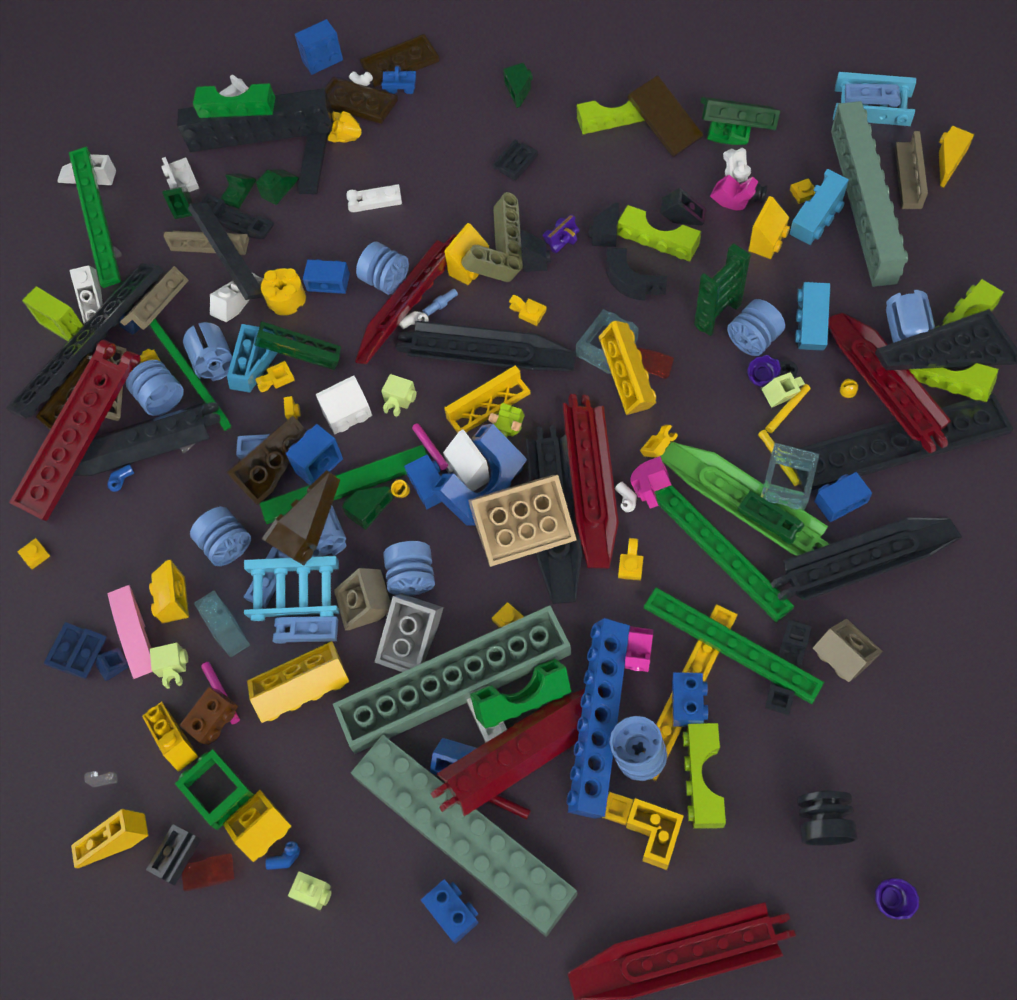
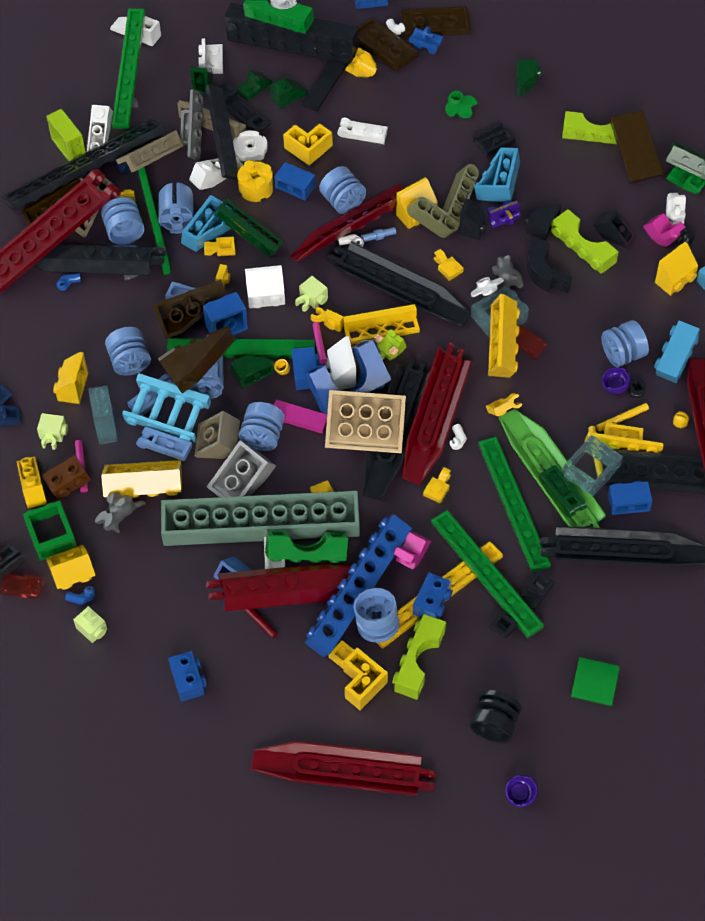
camera: 15 degrees right, 5 degrees down
(131, 630) = (32, 396): bright pink slope -> none
(188, 254) = (191, 125): none -> dark grey bracket
(270, 259) = (254, 153): none -> white plate
(286, 732) = (118, 509): none -> dark grey animal
(322, 233) = (309, 145): none -> yellow brick
(431, 415) = (331, 319): none -> yellow plate
(446, 537) = (302, 417): none -> dark pink tile
(463, 136) = (460, 105): none -> green plate
(469, 840) = (220, 631): sand green brick -> none
(541, 196) = (500, 178): none -> dark azure wedge
(581, 318) = (486, 286): none -> white plate
(595, 296) = (506, 270): none -> dark grey animal
(649, 478) = (481, 429): dark pink brick -> none
(722, 290) = (619, 307): dark green fence -> none
(782, 389) = (623, 399): yellowish green brick -> none
(805, 430) = (626, 438): none -> yellow bracket
(847, 650) = (575, 609): dark tan slope -> none
(909, 726) = (595, 681): none -> green slope

